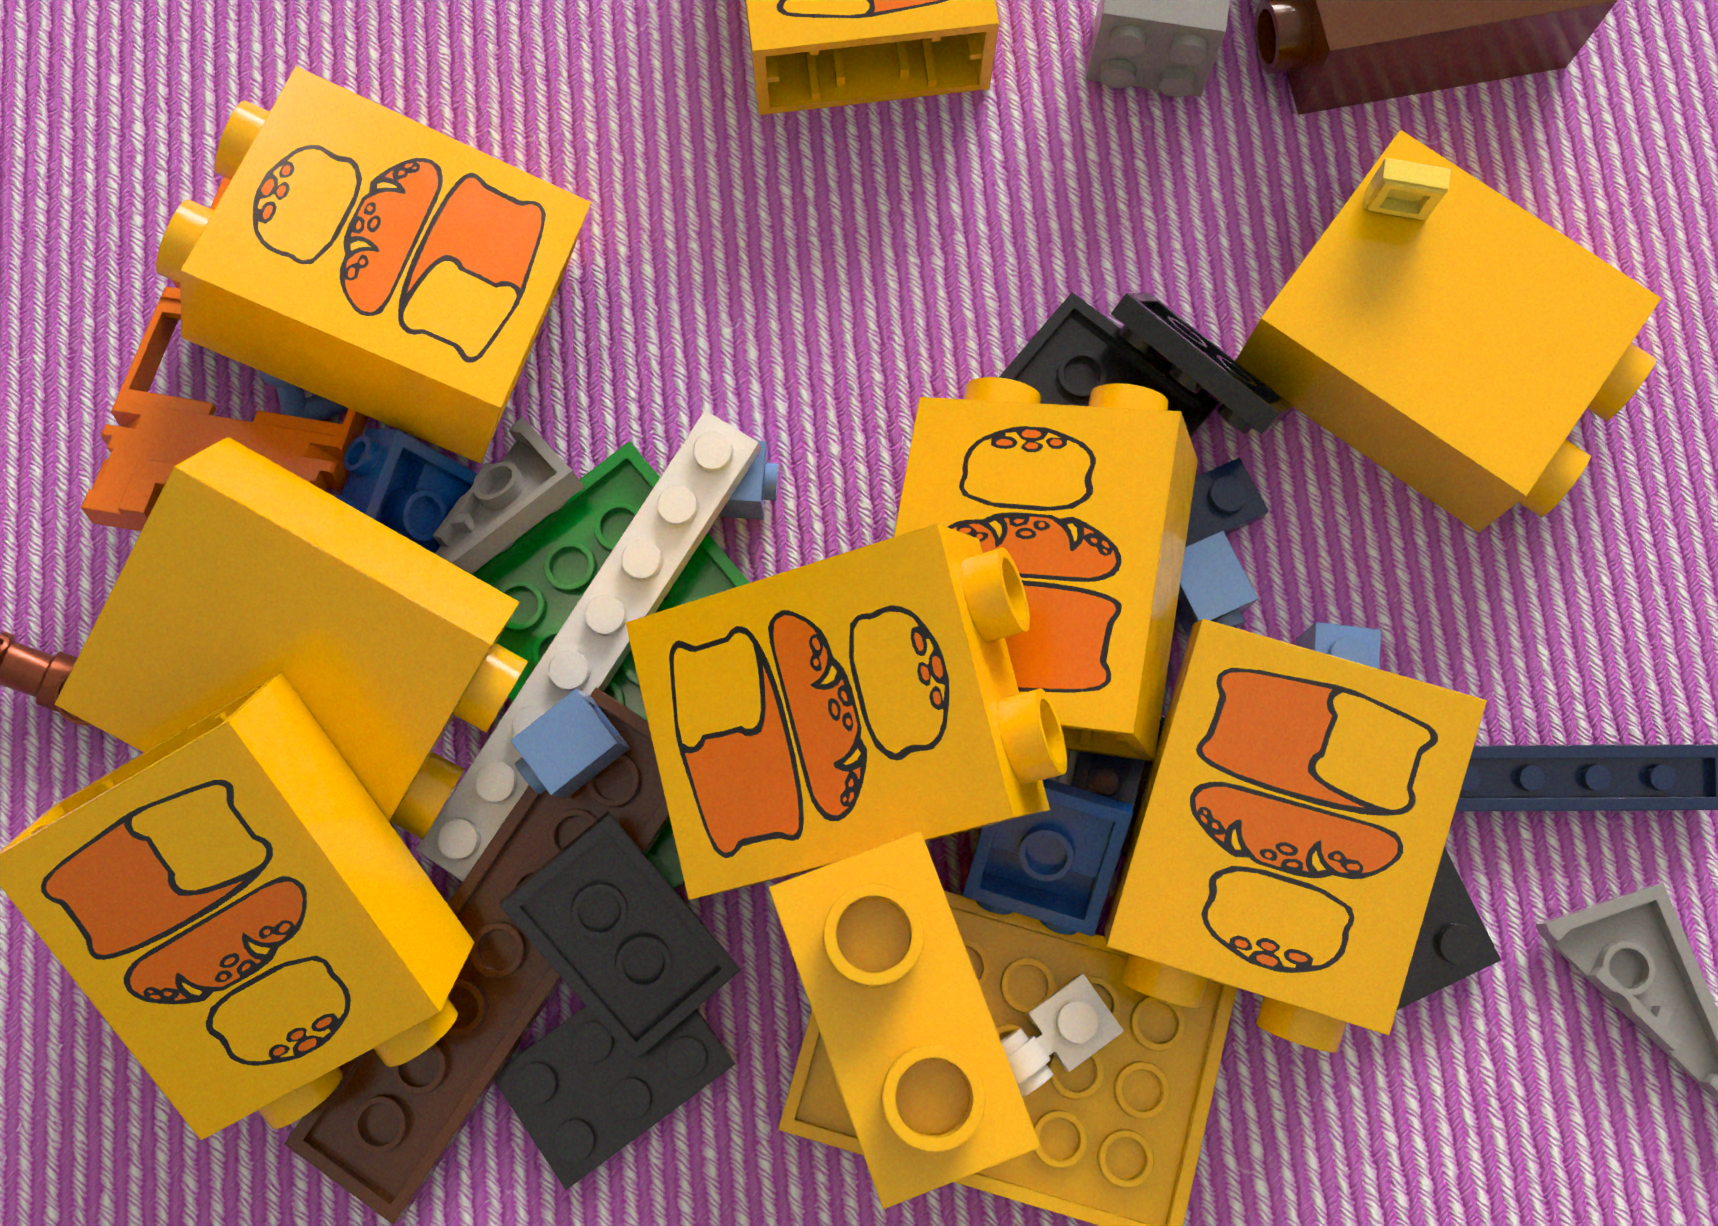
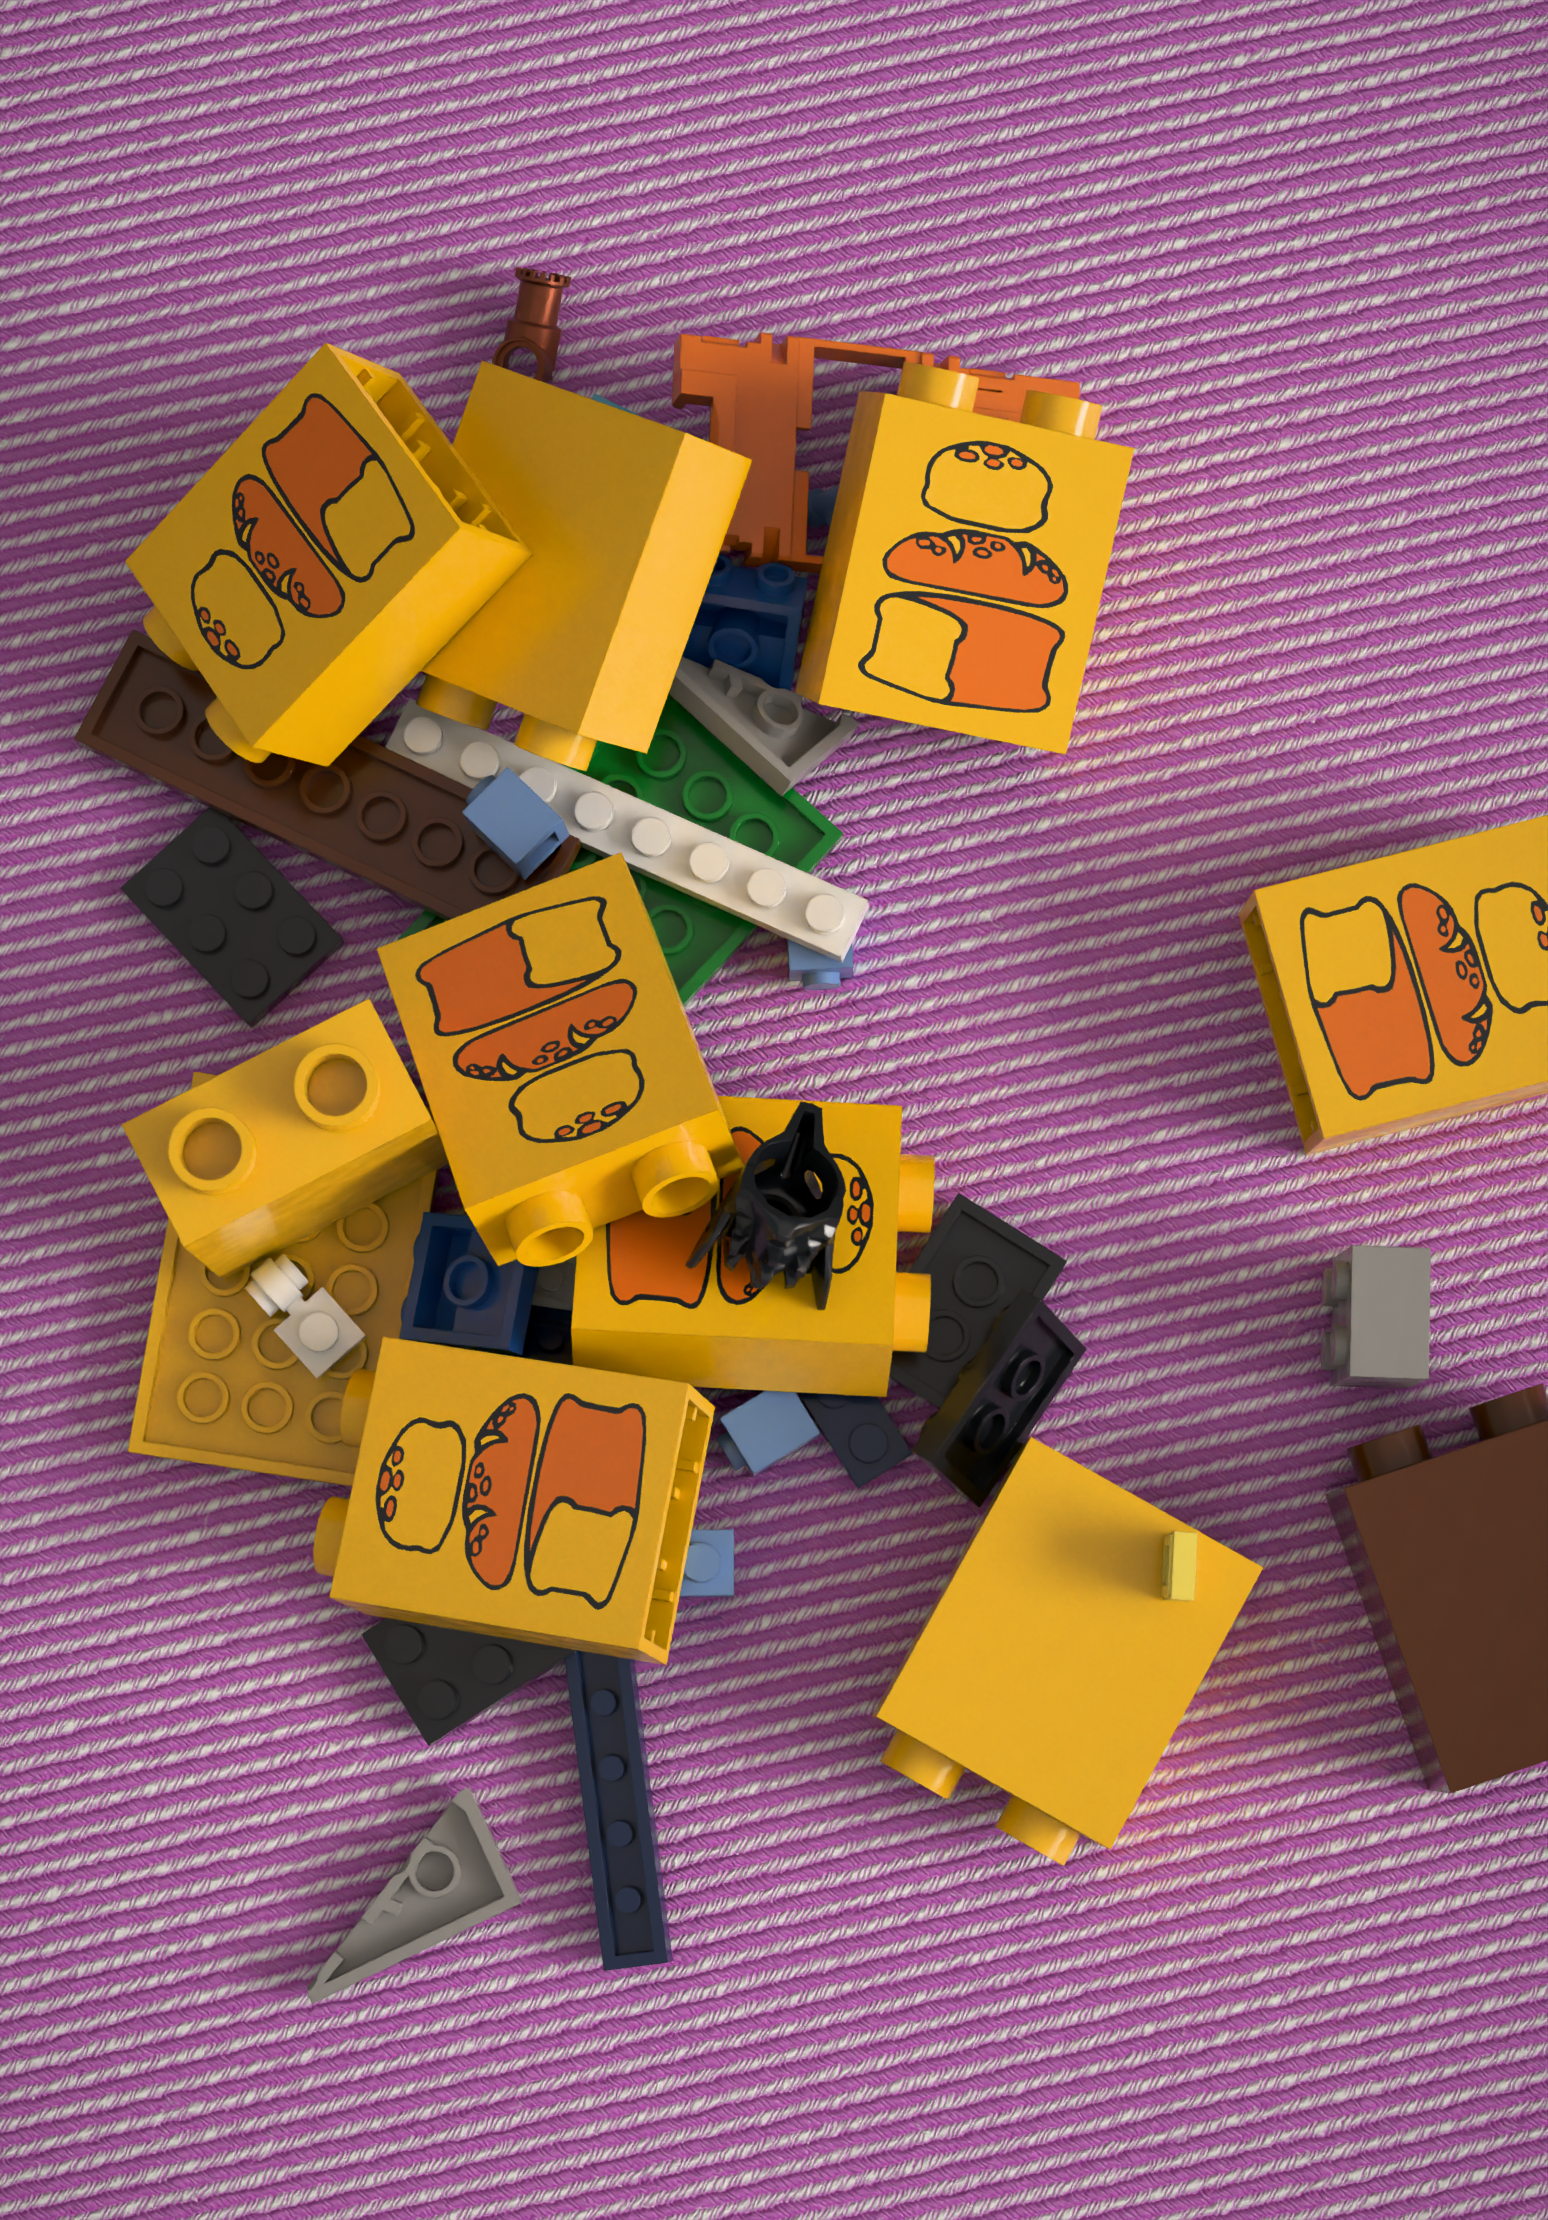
camera: 80 degrees right, 5 degrees up
(620, 936) = (346, 897): black plate -> none
(1036, 508) = (779, 1210): none -> black piece

